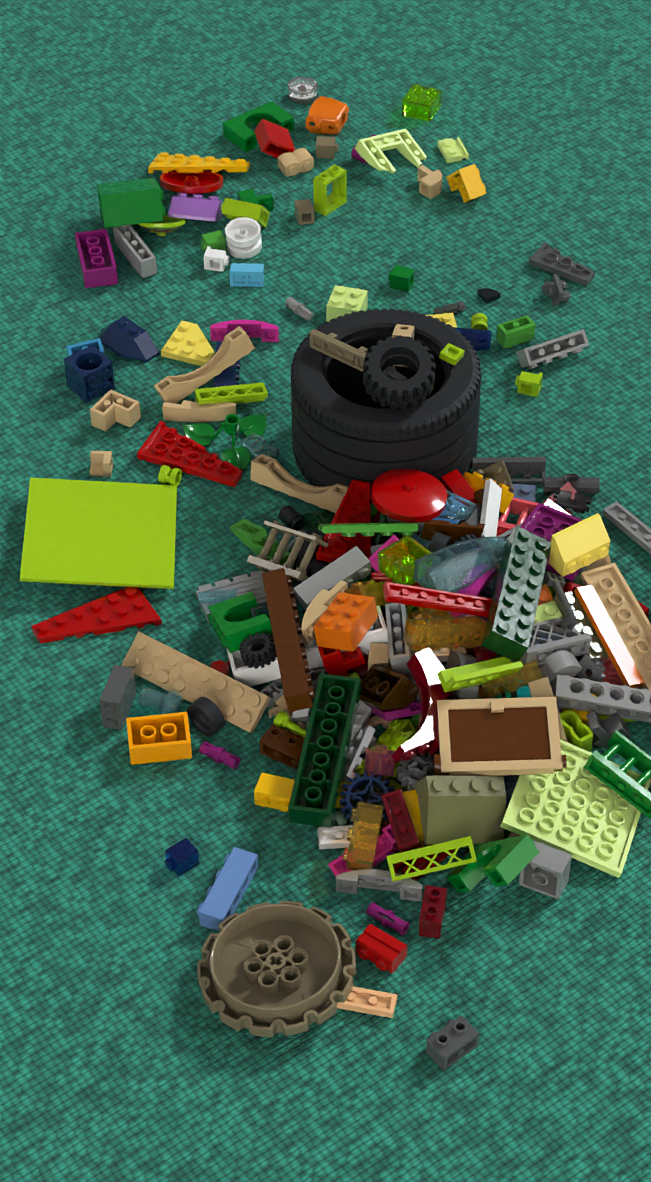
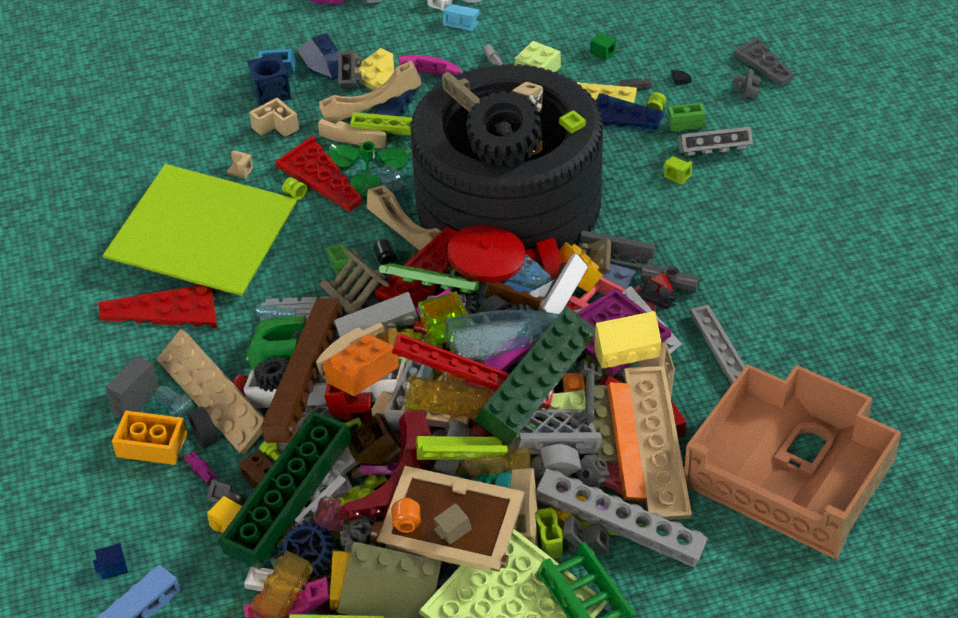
camera: 20 degrees right, 0 degrees up
(166, 348) = (349, 70): none -> dark grey brick
(252, 770) = (219, 489): none -> dark grey plate
(400, 820) = (323, 581): dark red tile -> none
(462, 741) = (406, 515): none -> orange head
(507, 739) = (452, 524): none -> dark tan brick

